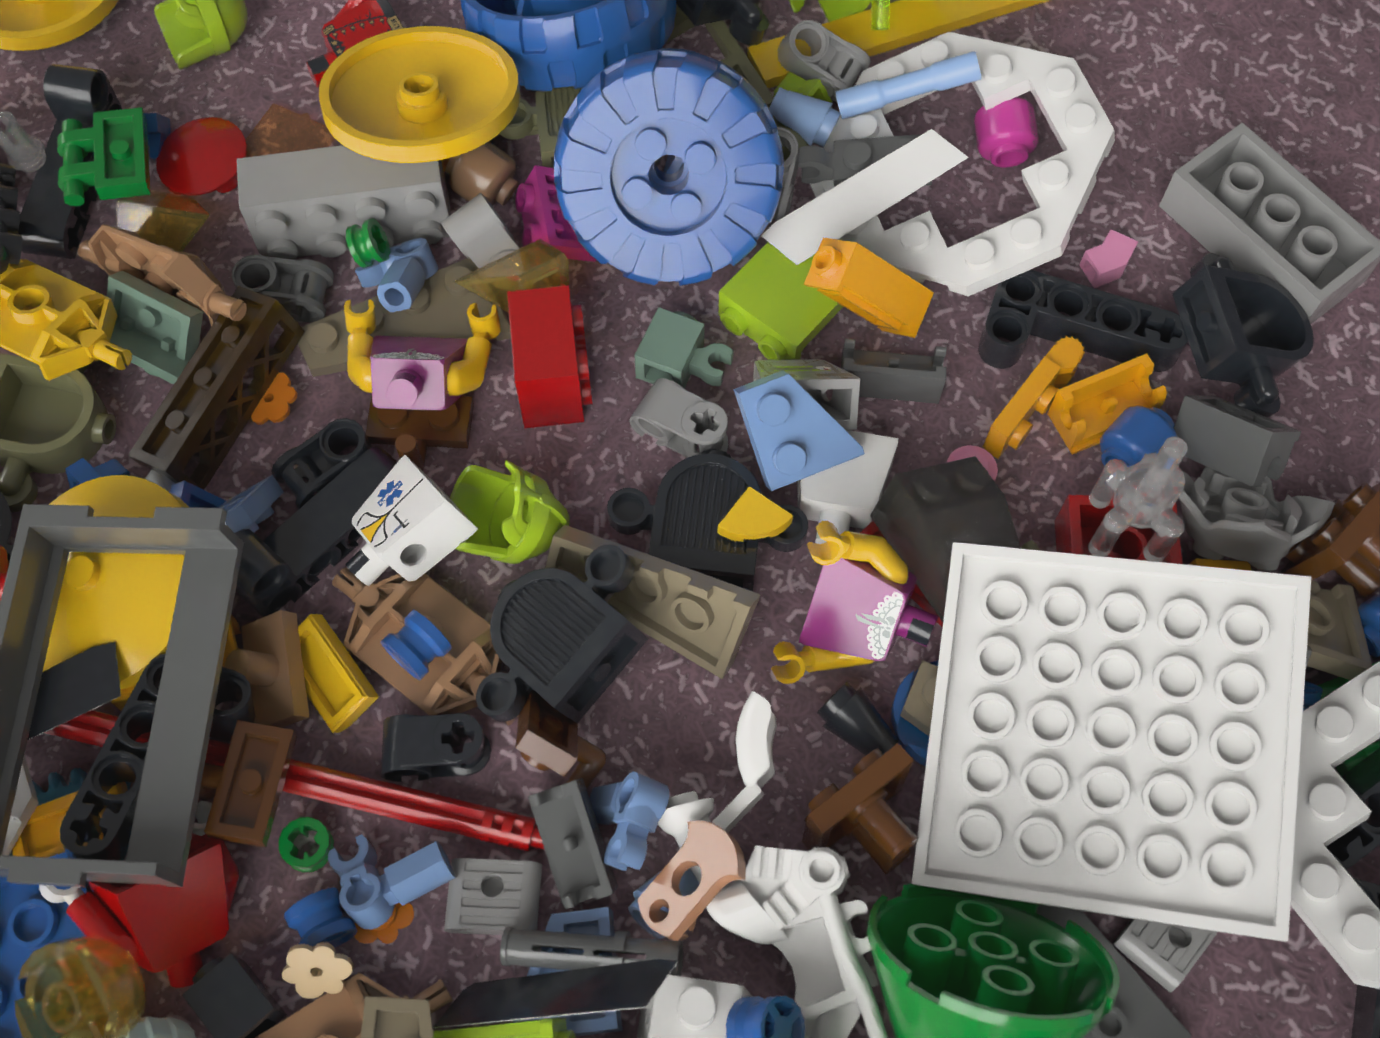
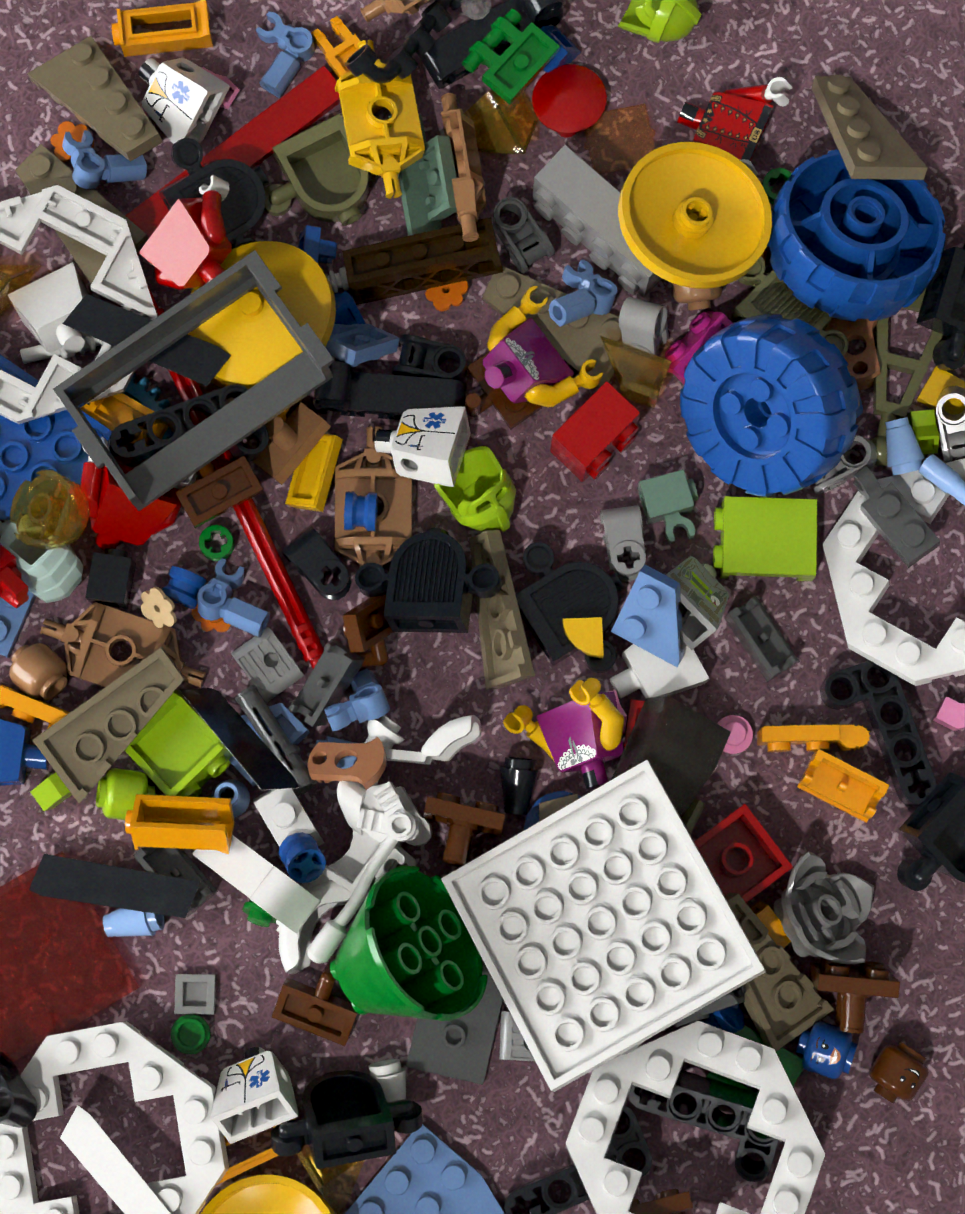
camera: 50 degrees right, 15 degrees up
(368, 243) = (582, 263): green bush -> none
(863, 196) = (858, 534): white sticker -> none
(869, 286) = (794, 585): light orange window -> none
(1136, 433) = (828, 822): blue head -> none
(1141, 499) = (755, 848): clear plant -> none
(1234, 439) = (871, 874): dark grey hinge -> none

